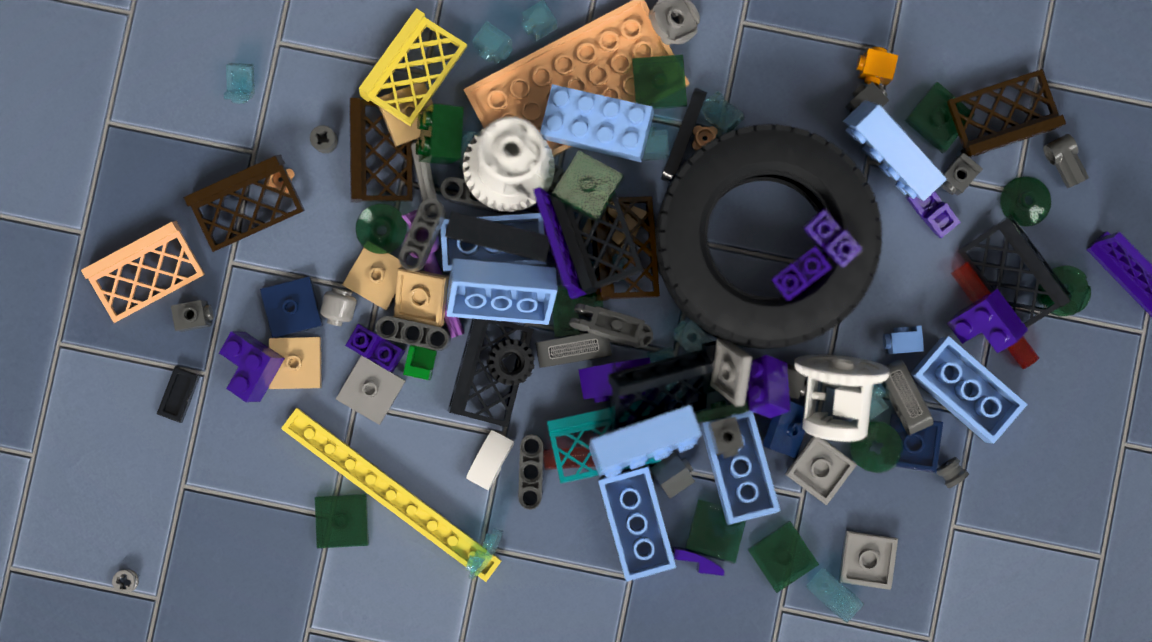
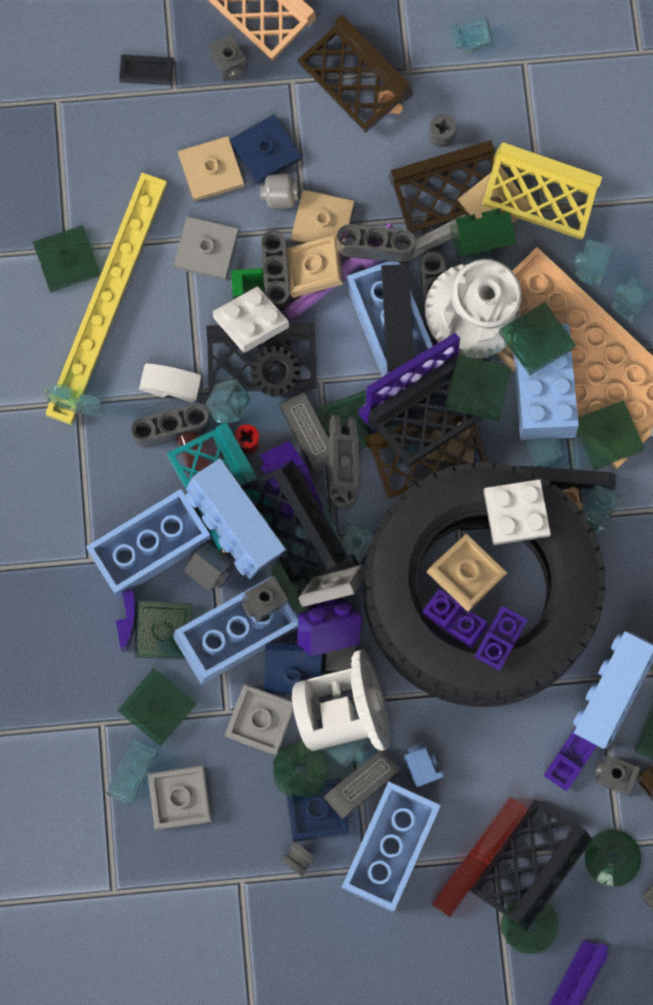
camera: 70 degrees right, 10 degrees down
(255, 364) = (196, 129): dark purple brick -> none
(375, 348) = (248, 240): dark purple slope -> none
(381, 216) = (373, 198): clear green dish -> none
(457, 370) = (250, 319): none -> white plate
(501, 291) = (342, 336): light blue brick -> none
(527, 414) = (227, 402): none -> clear light blue brick
(556, 403) = (247, 431): none -> red bush
(560, 116) = (537, 338): none -> clear green plate
(722, 187) = (516, 512): none -> white plate
(765, 250) = (467, 572): none -> tan plate
(993, 318) = (473, 845): dark purple brick -> none

